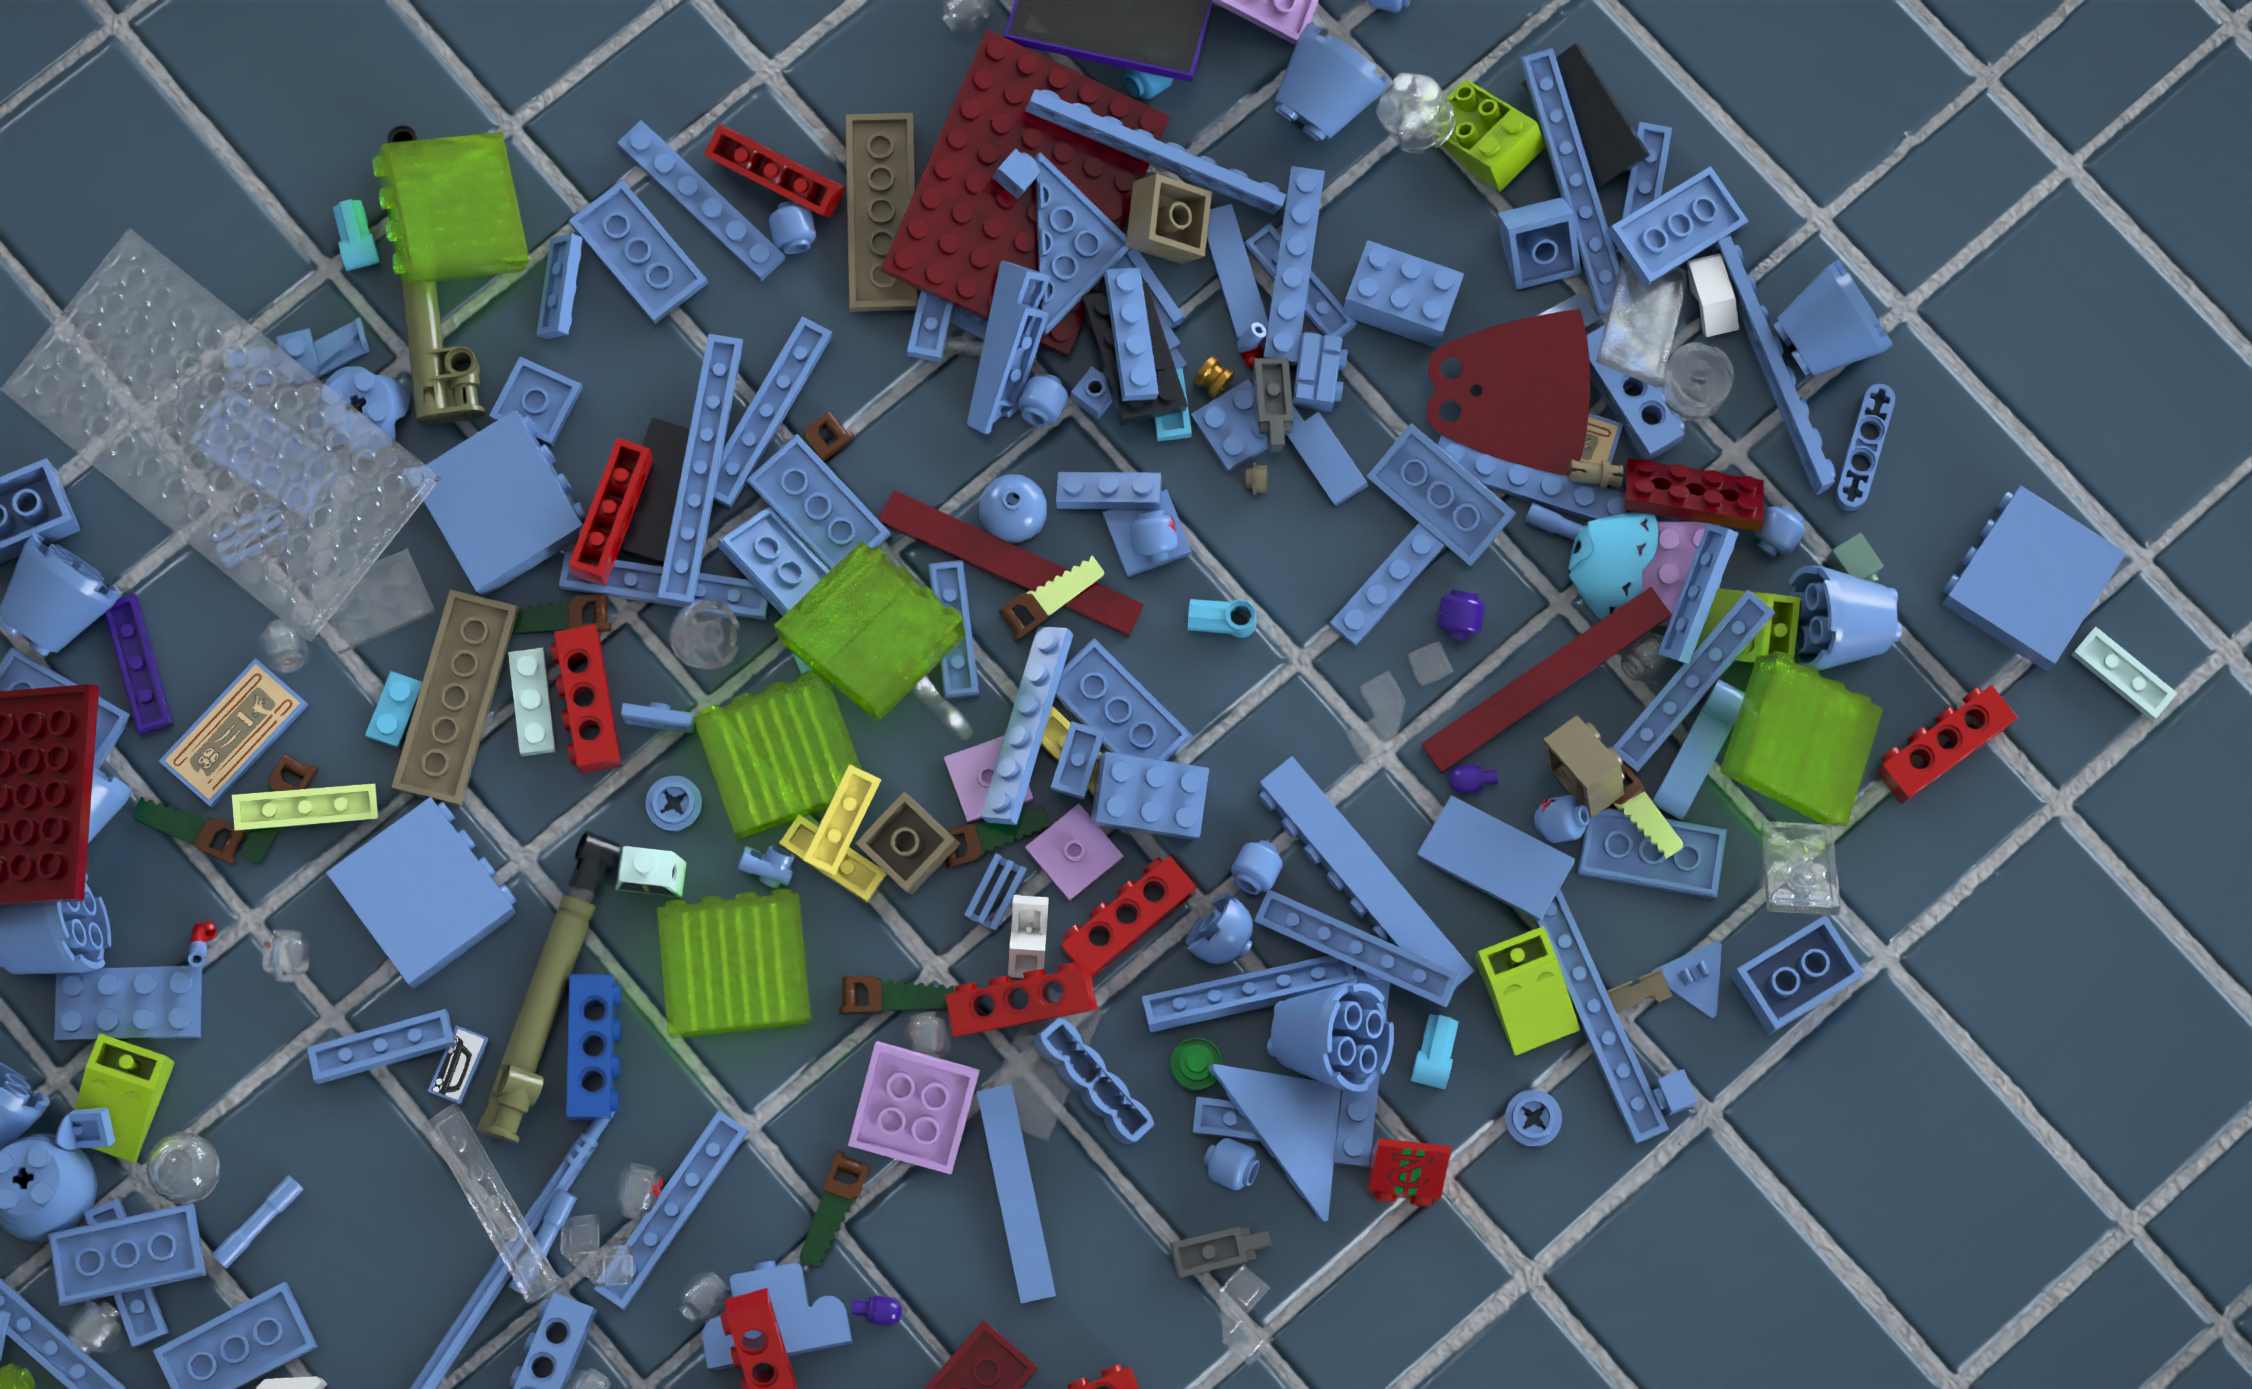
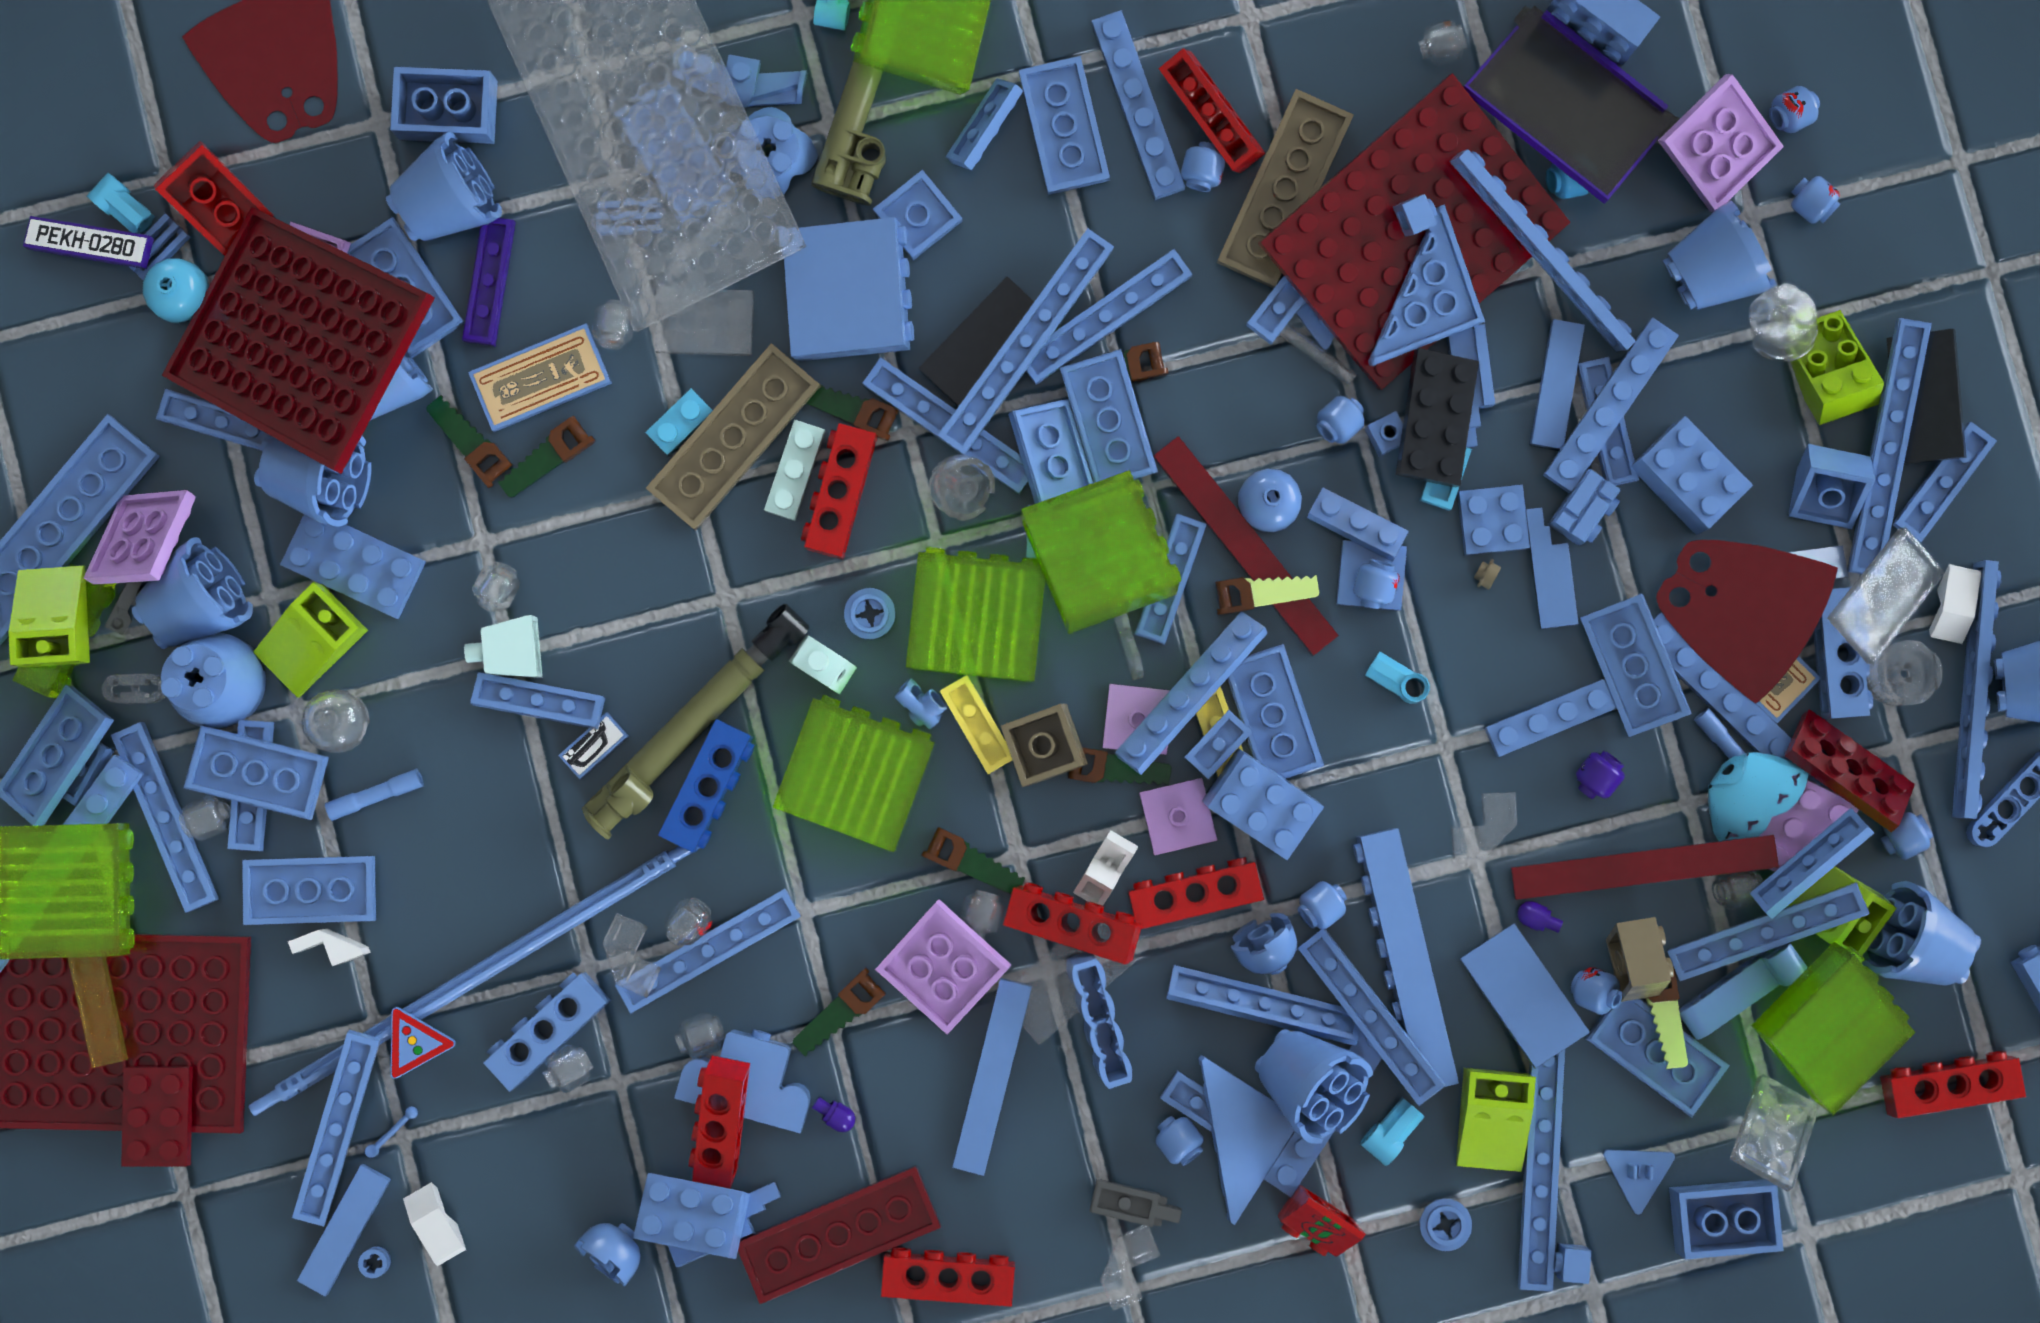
camera: 30 degrees right, 10 degrees up
(85, 1129) = (267, 654): medium blue plate -> none
(198, 942) = (431, 541): arm -> none
(304, 807) = (568, 470): yellowish green plate -> none
(327, 1009) = (508, 648): none -> light aqua torso
(423, 892) = (630, 588): medium blue brick -> none
(492, 1203) = (566, 875): clear tile -> none
(553, 1222) = (608, 914): medium blue piece -> none
(611, 512) = (933, 344): red brick -> none
(658, 717) = (890, 534): medium blue plate -> none
(842, 819) = (999, 699): light yellow plate -> none
(1008, 867) = (1118, 801): medium blue tile -> none
(1009, 344) = (1336, 358): medium blue wedge -> none
(1131, 334) = (1443, 402): medium blue plate -> none
(1168, 219) = (1525, 314): dark tan brick -> none
(1192, 1061) = (1189, 1041): green plate -> none
(1213, 377) = (1494, 469): pearl gold wheel -> none
(1249, 344) = (1538, 458): medium blue arm -> none
(1273, 400) = (1534, 516): dark grey hinge -> none
(1430, 664) = (1552, 802): clear tile -> none
(1596, 473) = (1776, 711): dark tan pin -> none
(1633, 995) = (1596, 1162): dark tan piece -> none
(1677, 226) = (1957, 531): medium blue plate -> none
(1856, 559) = (1958, 893): sand green brick -> none

